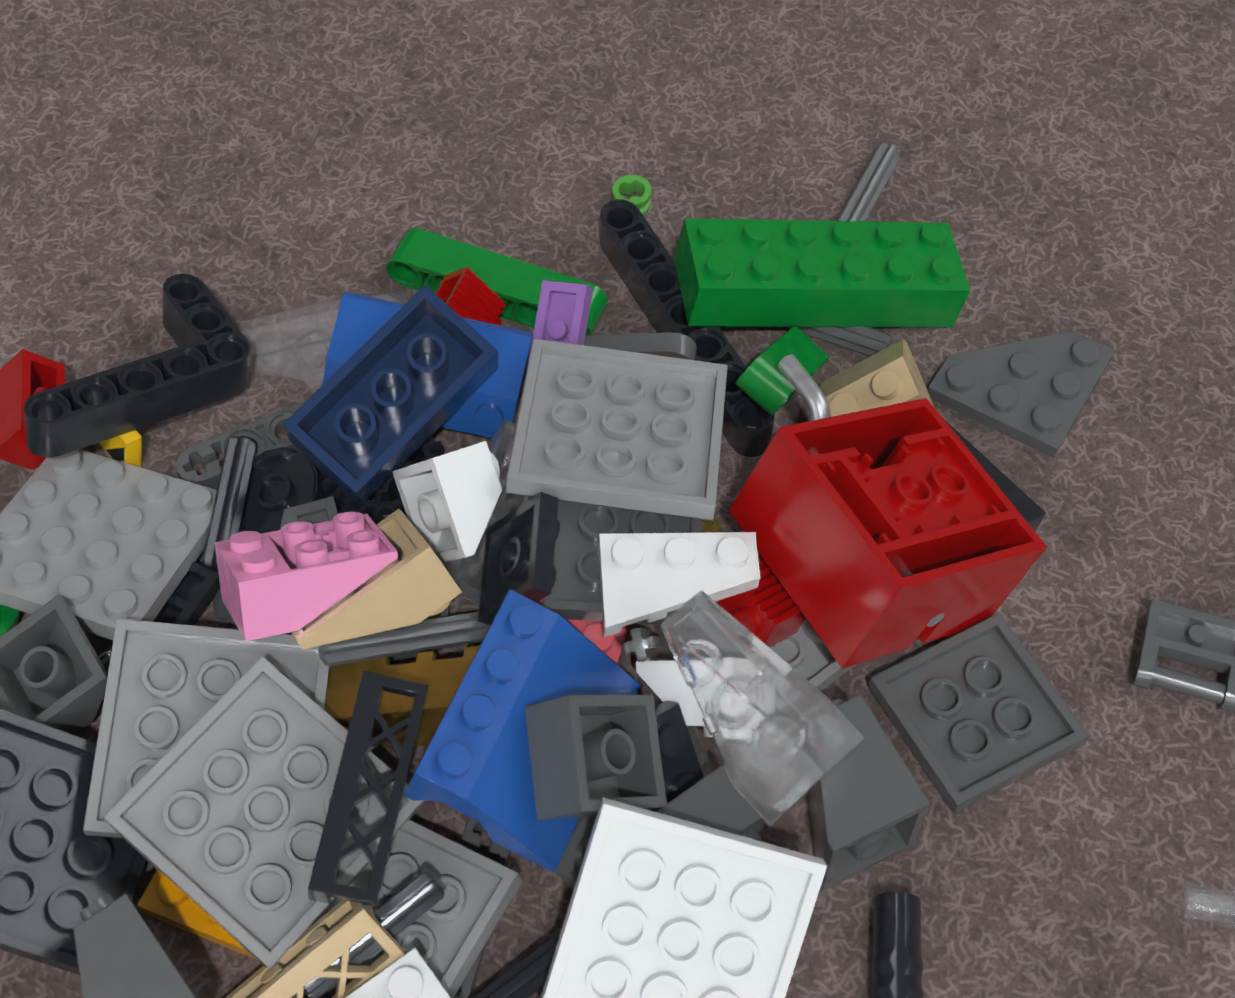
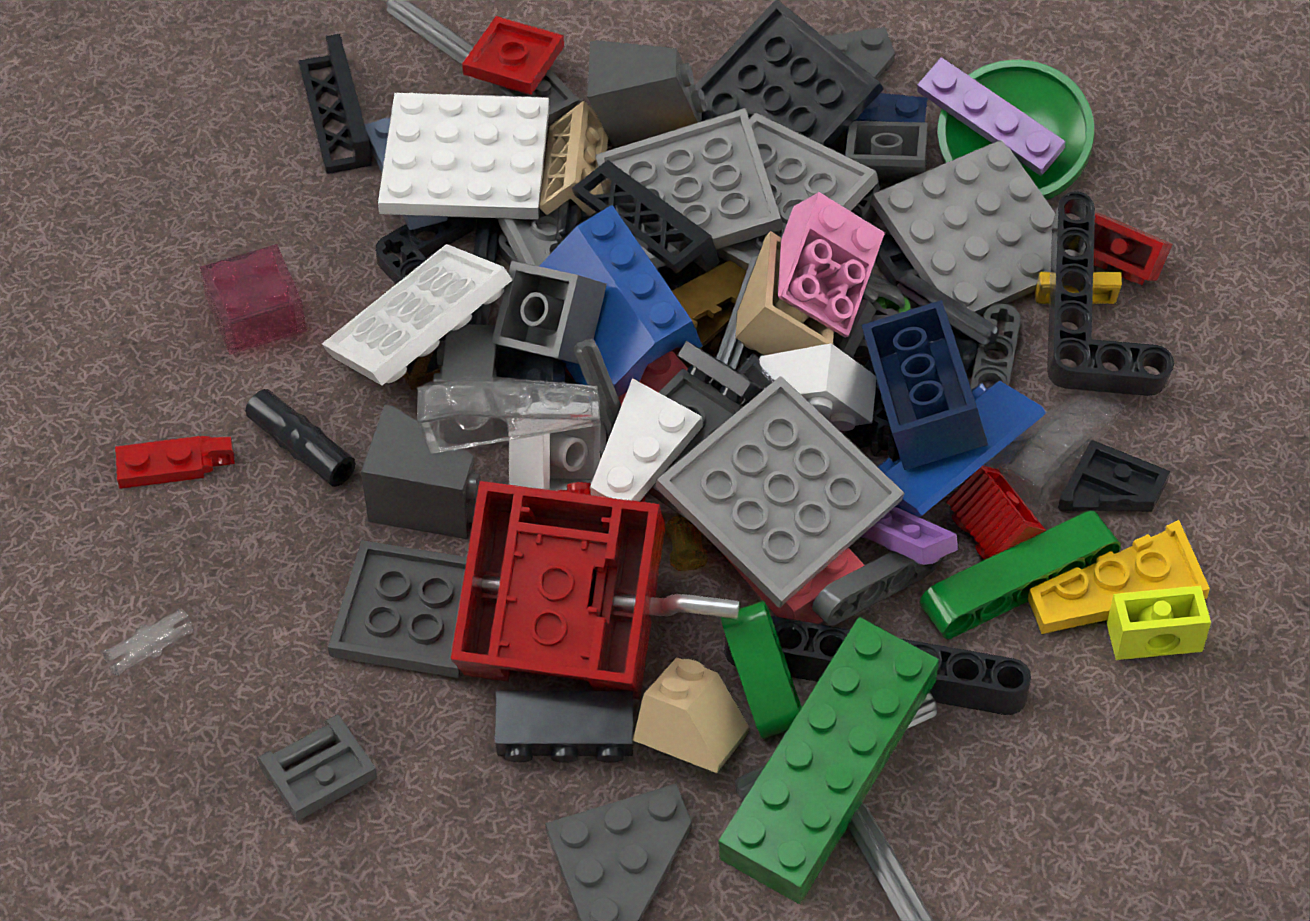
camera: 130 degrees right, 5 degrees down
(329, 270) = (1113, 482): none -> black wing
(414, 198) = (1087, 593): none -> yellow wing
(472, 161) = (1158, 622): none -> neon yellow brick
(630, 184) = (1040, 741): bright green bush -> none

